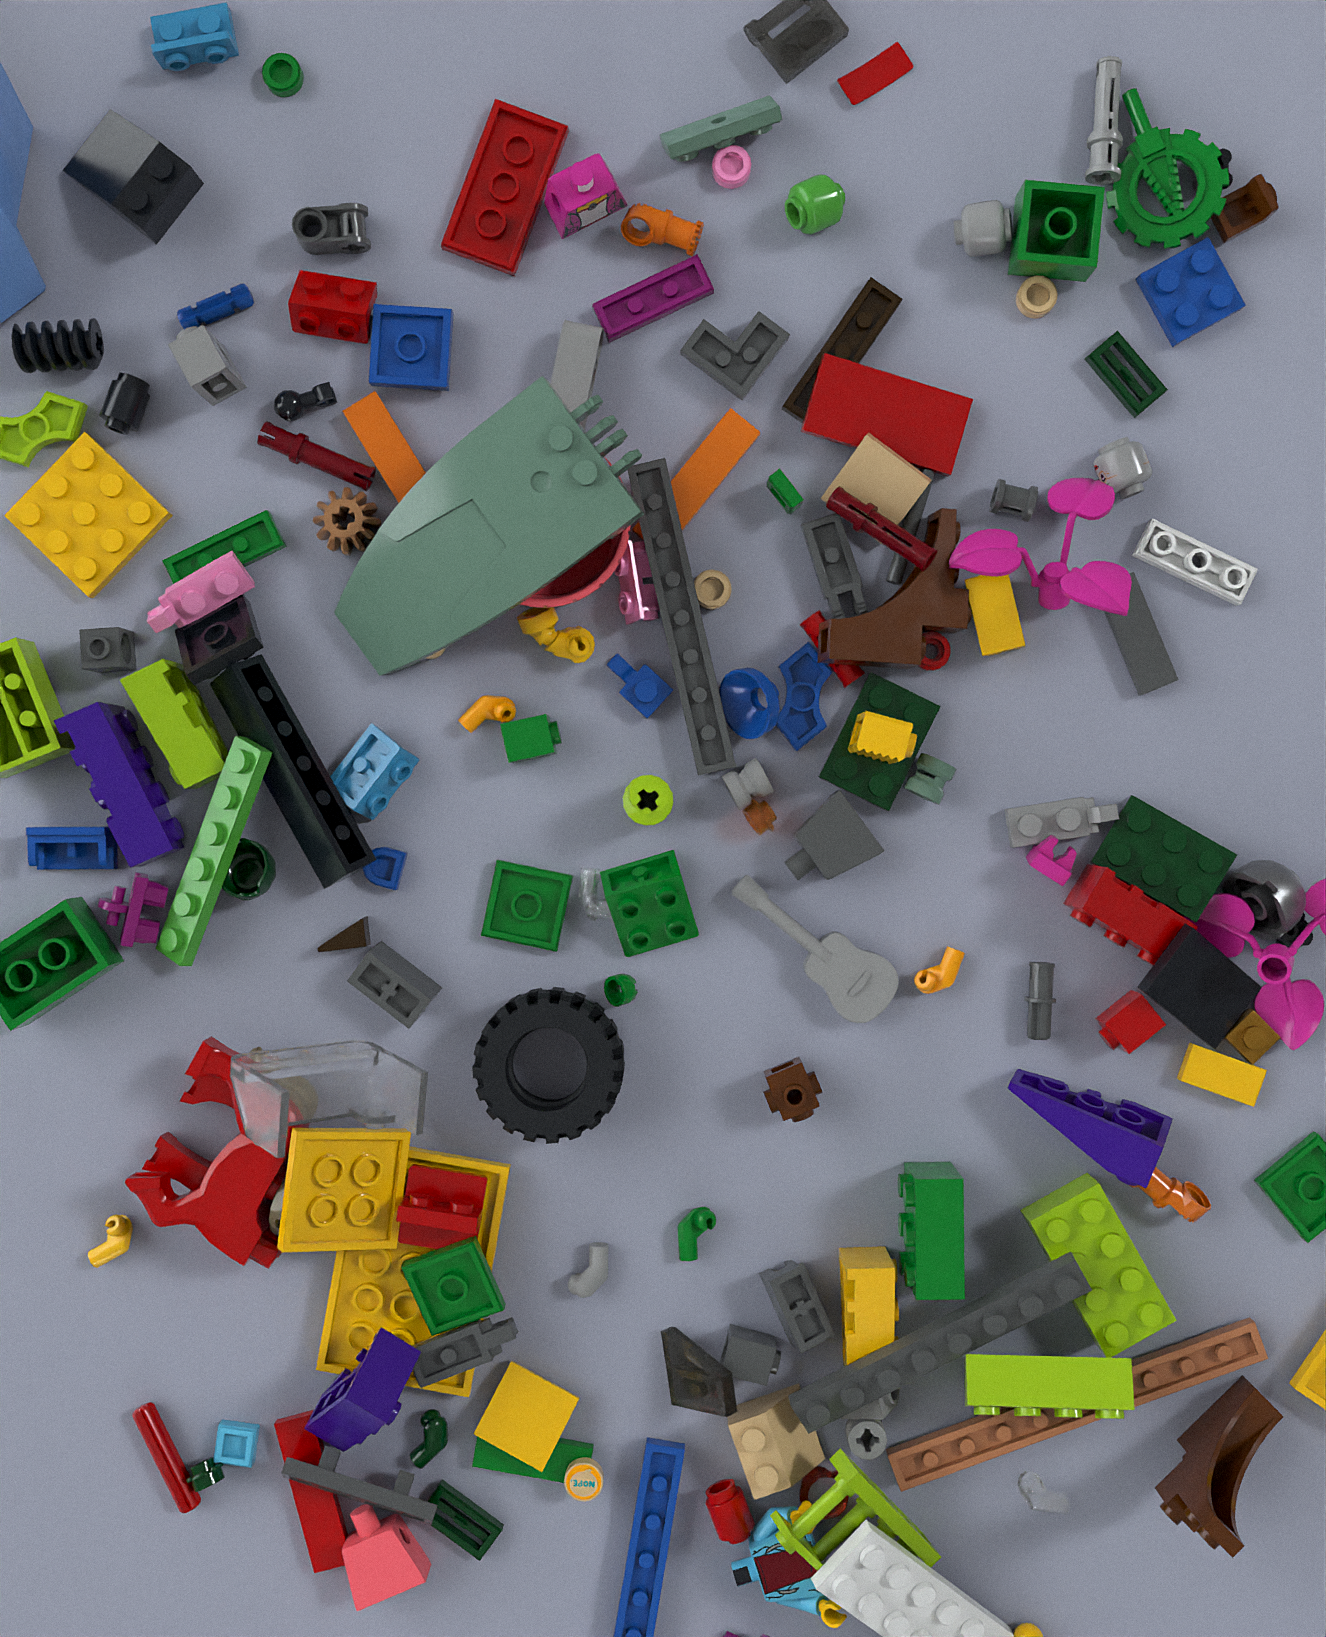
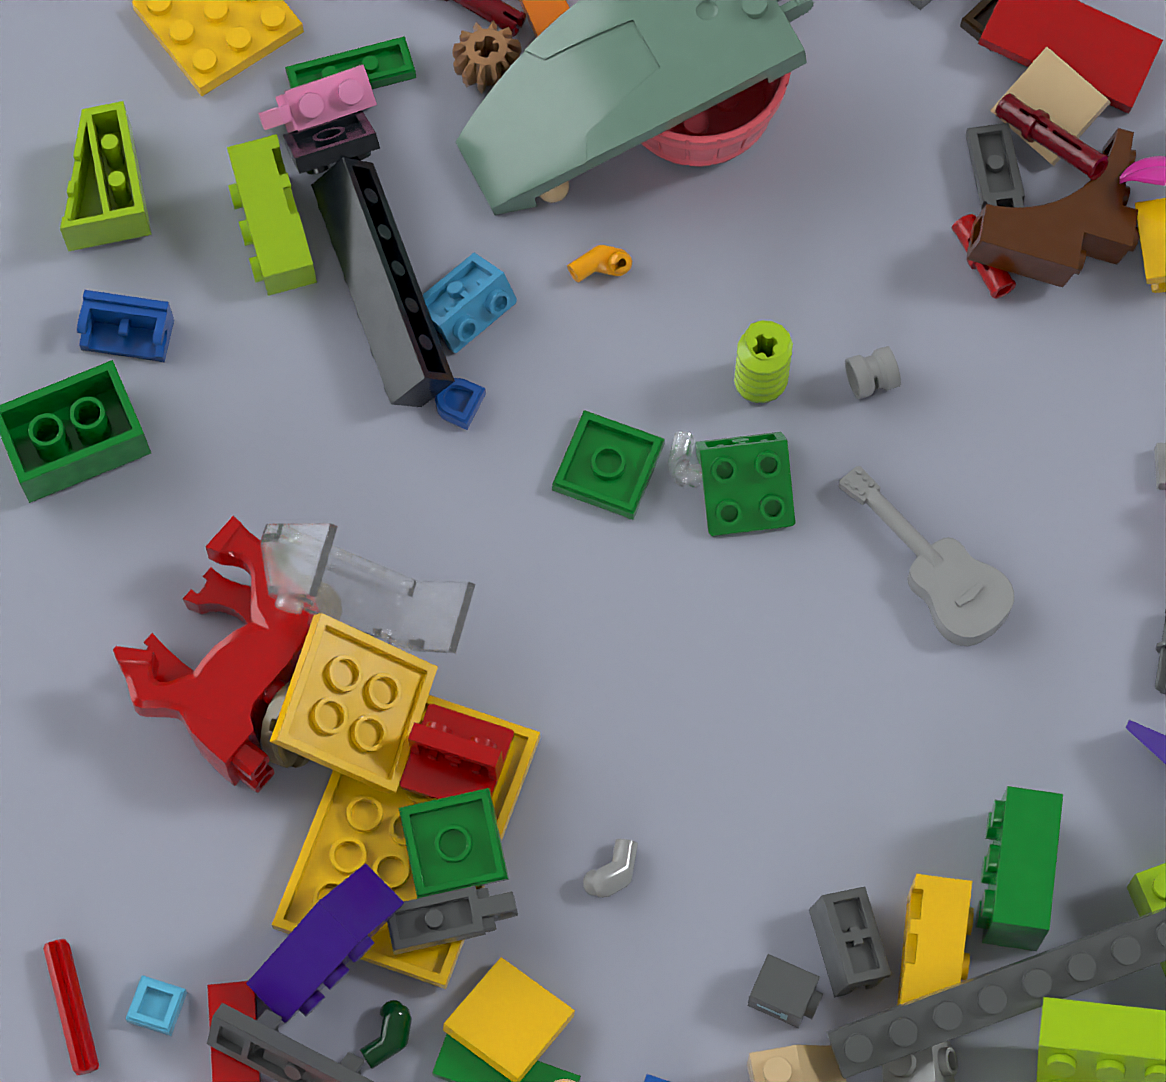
camera: 10 degrees right, 20 degrees down
(107, 649) = (208, 136): dark grey brick -> none
(117, 1241) = (72, 750): yellow arm -> none
(123, 781) = (197, 264): dark purple wedge -> none
(142, 892) = (190, 382): magenta hips -> none
(205, 1474) = (114, 1031): dark green plate -> none
(213, 850) = (278, 346): bright green plate -> none
(250, 871) = (310, 373): dark green hair -> none
(352, 937) = (403, 466): dark brown piece -> none
(394, 984) = (446, 516): dark grey hinge -> none
(530, 738) = (643, 291): green brick -> none
(540, 1116) = (602, 567): black tyre -> none
(569, 643) = (704, 208): yellow arm -> none
(613, 993) = (698, 556): green hinge -> none
(636, 599) = (780, 144): bright pink hinge -> none
(642, 688) = (770, 265): blue plate -> none
(681, 617) = (827, 203): dark grey plate -> none
(690, 1229) = (739, 840): green arm -> none
(696, 1377) = (718, 1001): clear smoke wing -> none
(710, 465) = (860, 78): orange tile -> none
(712, 589) = (861, 182): tan tile -> none
(741, 702) = (877, 284): blue piece -> none
(760, 816) = (881, 409): clear orange plate -> none
(784, 492) = (953, 96): green tile -> none
(785, 1078) = (877, 695): reddish brown brick -> none
(804, 678) = (940, 317): blue tile -> none
(832, 840) = (960, 443): dark grey torso -> none
(869, 778) = (1022, 357): dark green plate -> none
(882, 737) = (1026, 329): yellow brick -> none
(910, 524) = (1090, 137): dark grey bar -> none
(926, 787) = (1076, 395): sand green wheel -> none
(941, 975) = (1065, 608): light orange arm -> none
(943, 651) = (1101, 268): red plate -> none

